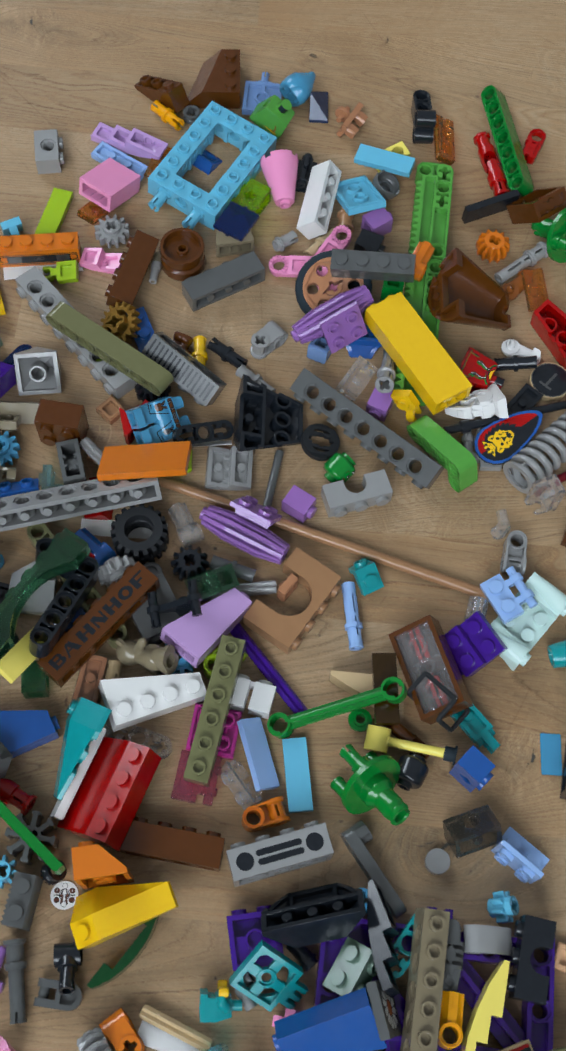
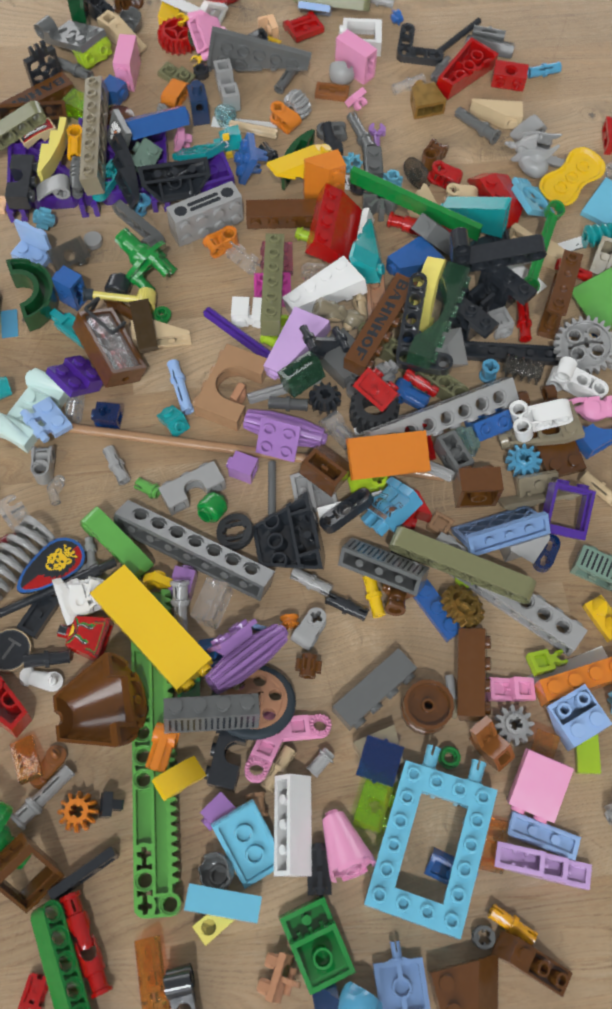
camera: 170 degrees right, 0 degrees up
(50, 915) = (352, 158): none -> medium azure gear
(56, 212) = (577, 717): none -> light blue slope
(58, 363) = (502, 530): none -> medium blue fence
(131, 536) = (376, 388): none -> red bracket
(137, 218) = (490, 744): none -> dark orange brick
(153, 805) = (301, 234): none -> lime pin
(164, 970) = (271, 154): none -> black pin
(174, 221) = (455, 755): none -> green plate
(199, 948) = (247, 158): none -> blue plate
(211, 472) = (325, 469): none -> reddish brown slope
(258, 754) = (235, 276): light blue tile -> none
(273, 115) = (374, 941): bright green torso -> none
(277, 308) = (308, 666): none -> reddish brown gear
(285, 350) = (289, 621): none -> orange bush
(297, 775) = (203, 273): medium azure tile -> none
(318, 132) = (316, 944): none -> green slope
(336, 708) = (178, 306): green piece -> none
(404, 506) = (147, 488): none -> bright green pin
(407, 238) = (178, 778): none -> yellow slope
(431, 594) = (107, 415): none -> clear blue brick
(434, 538) = (116, 465): none -> light grey pin
(467, 244) = (108, 804): none -> black tile
(508, 788) = (44, 295): none -> dark green brick

